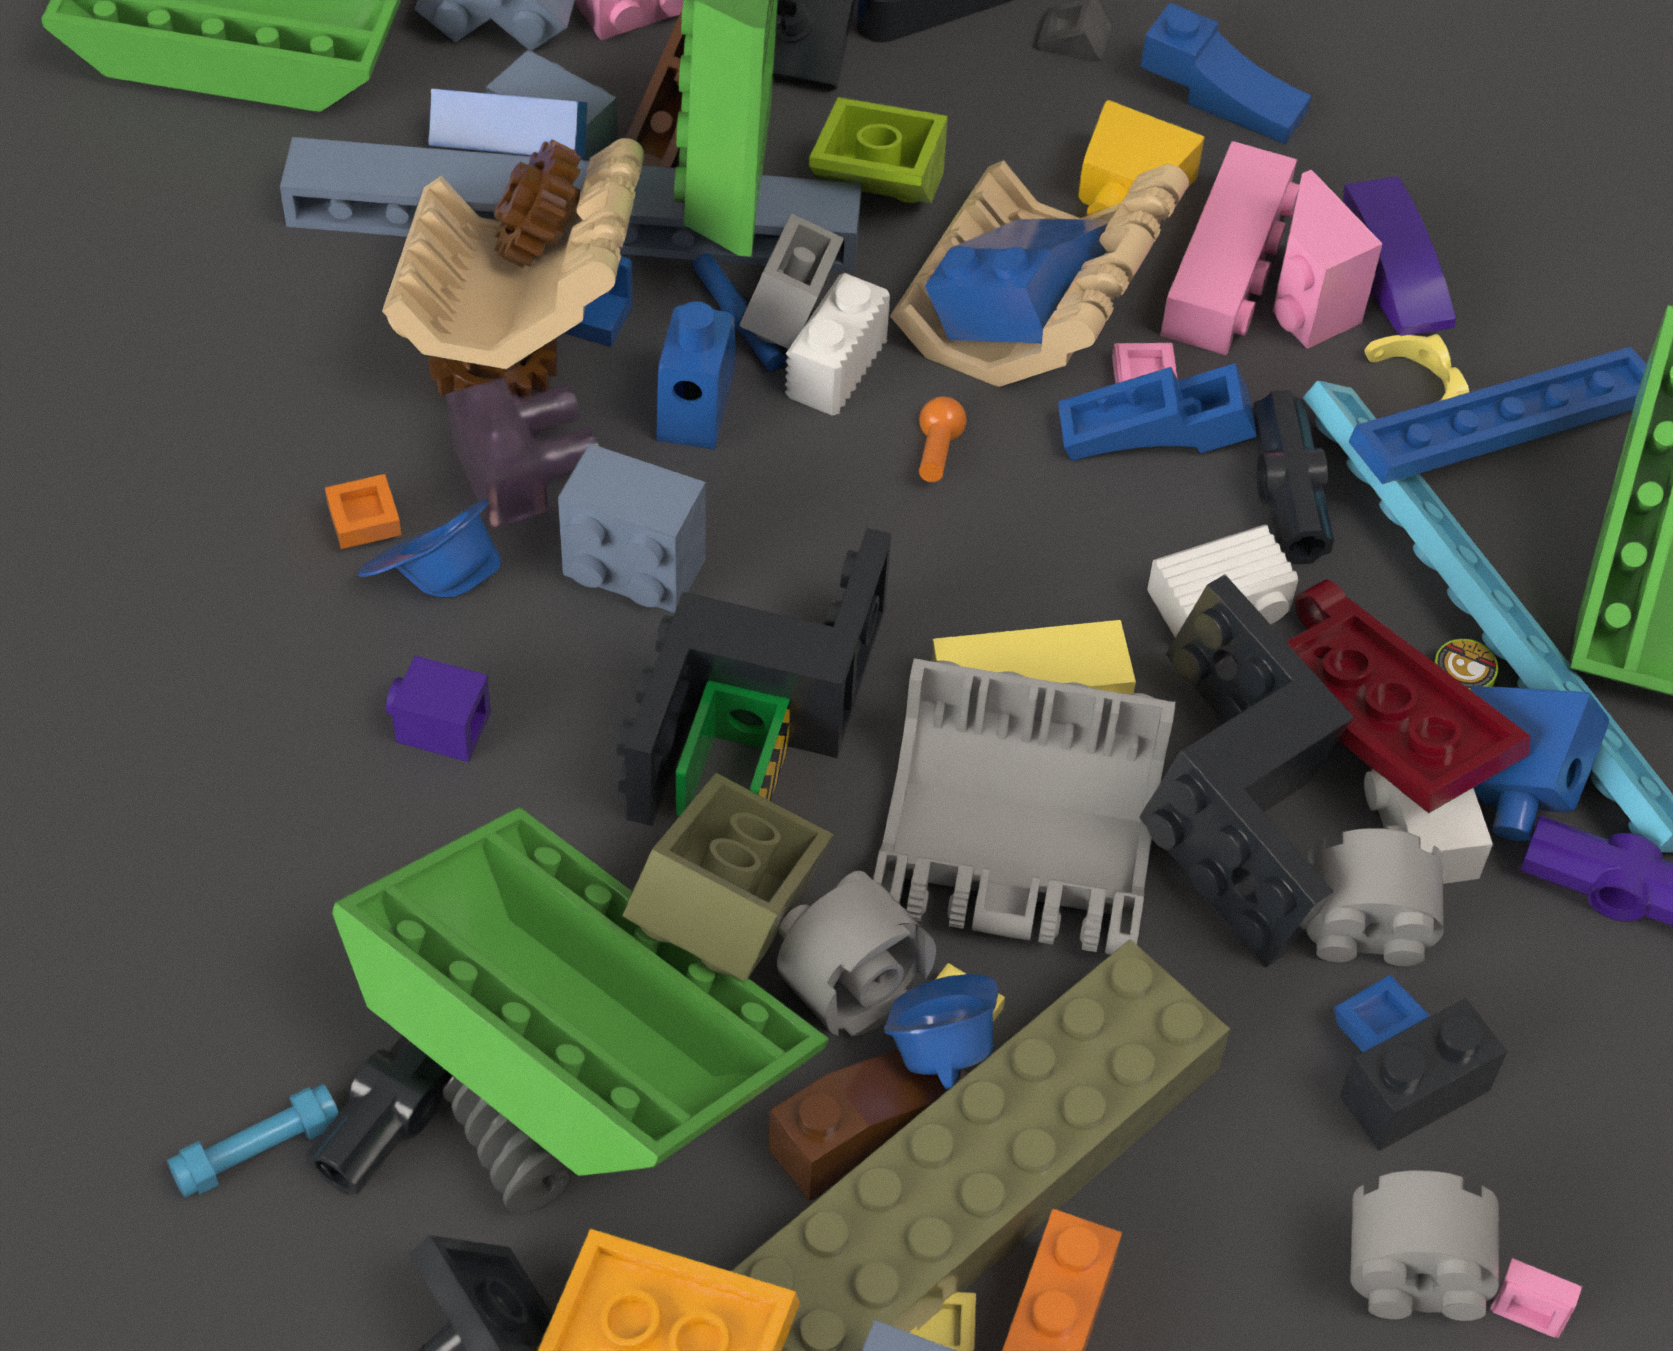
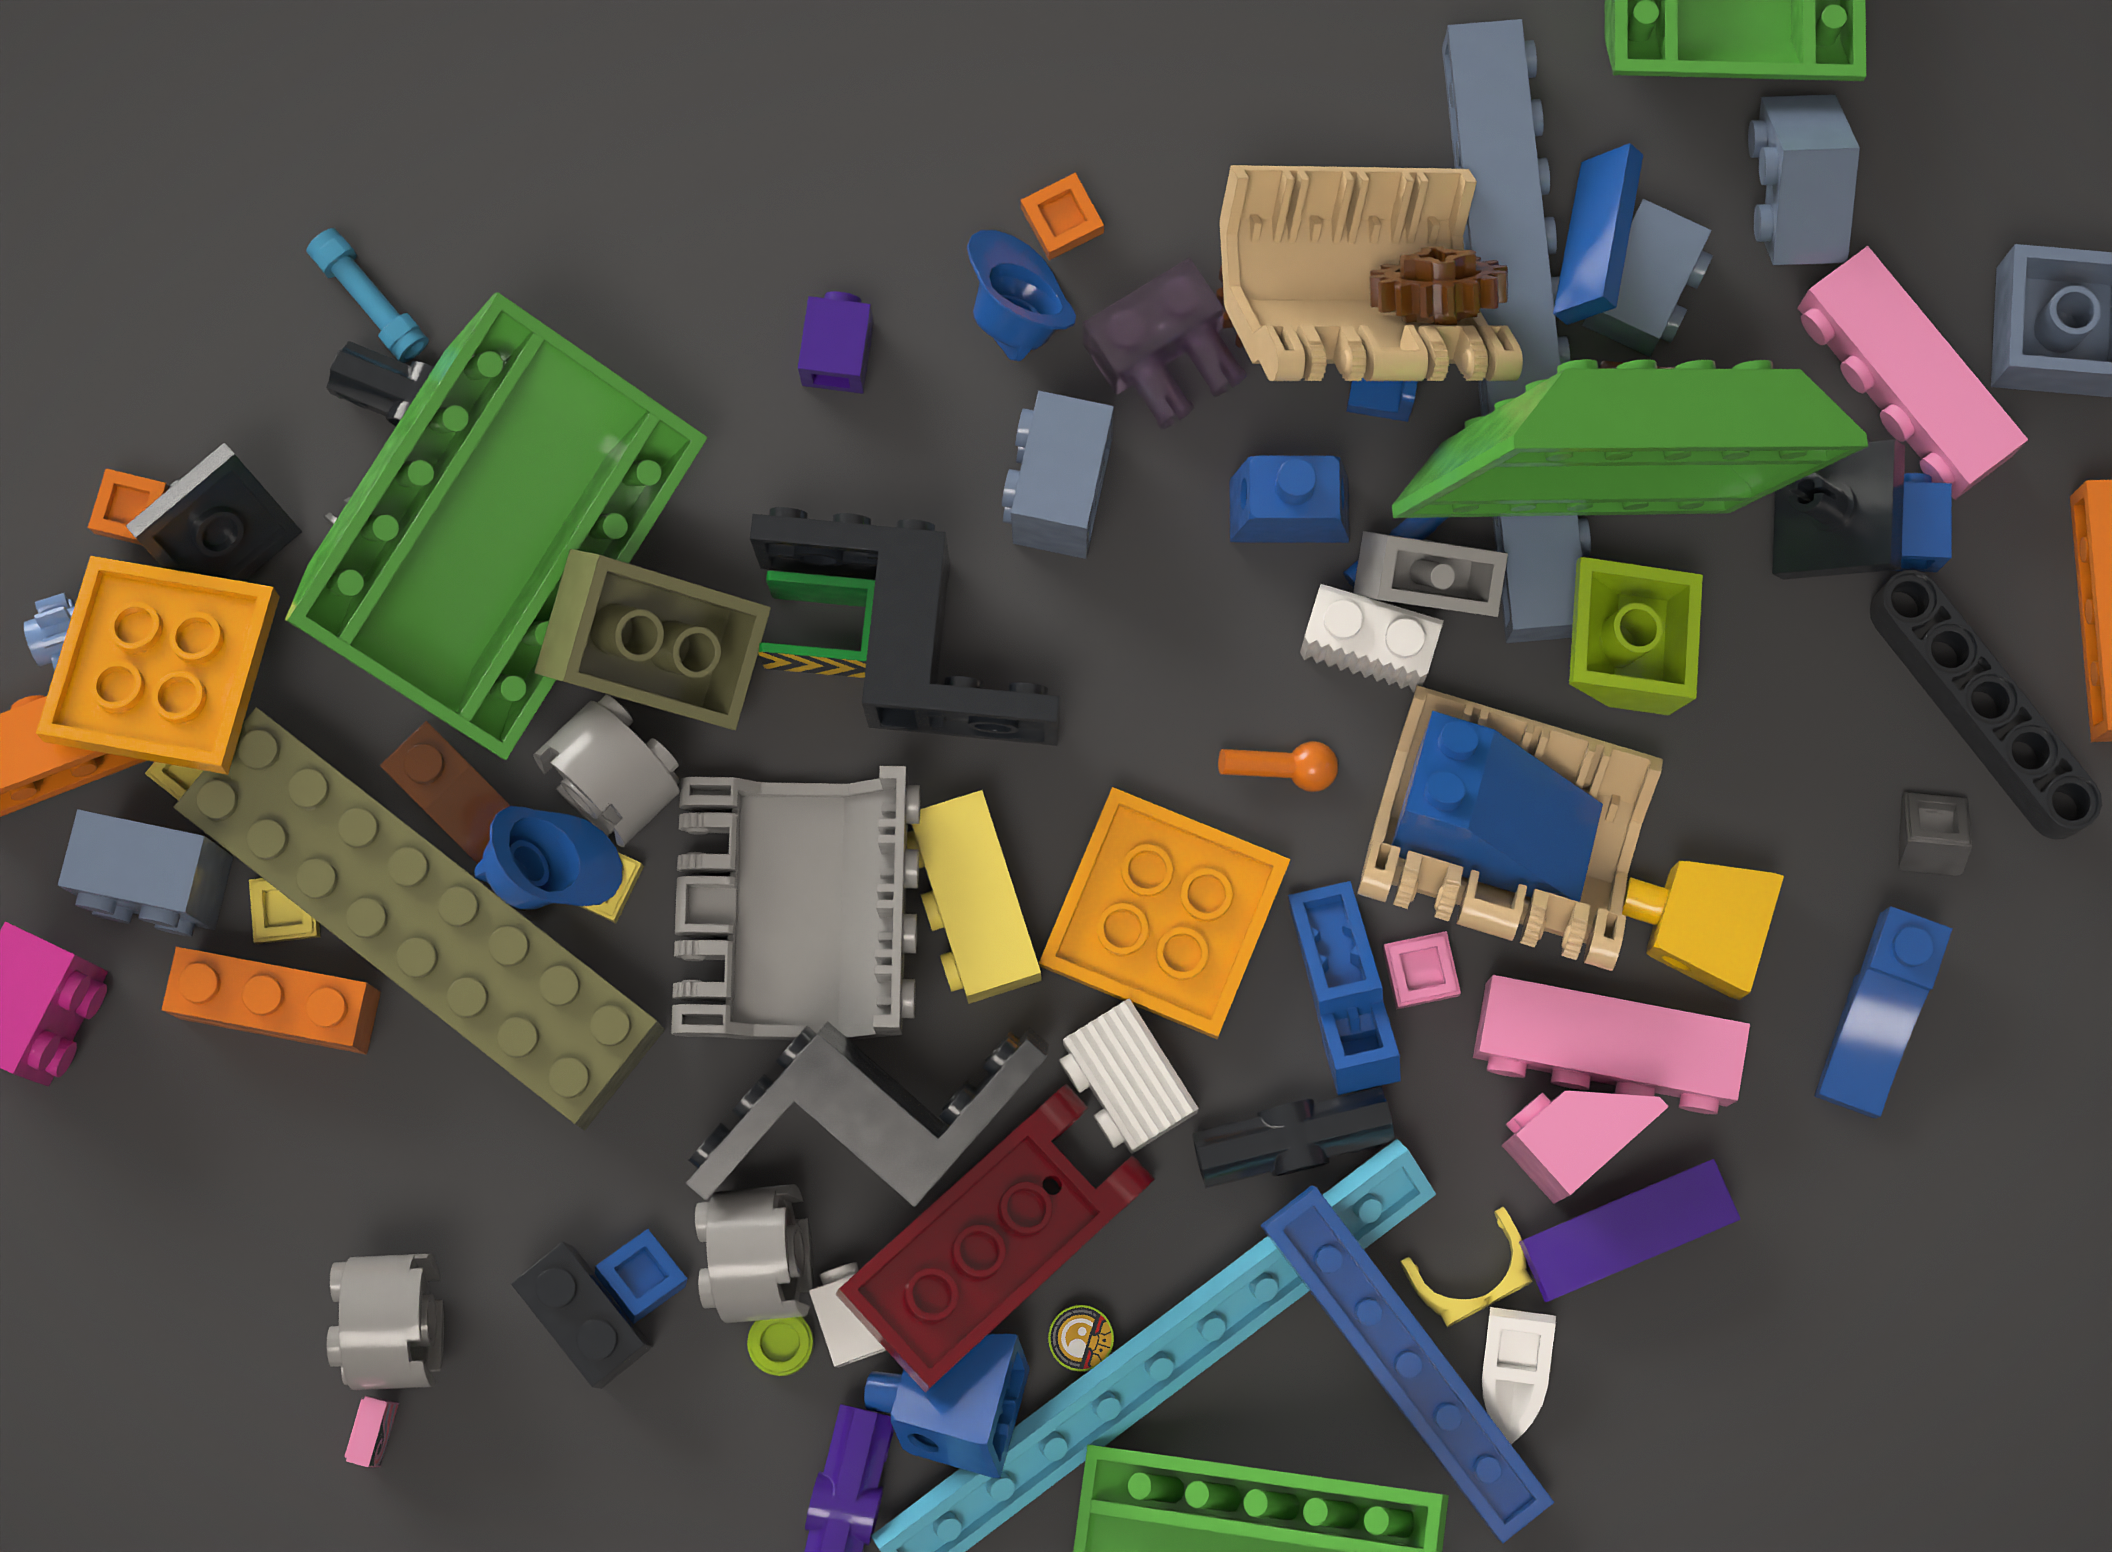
camera: 85 degrees right, 25 degrees up
(1065, 537) = (1164, 912): none -> light orange plate
(1464, 918) = (780, 1345): none -> lime tile
(1501, 351) = (1516, 1368): none -> white plate

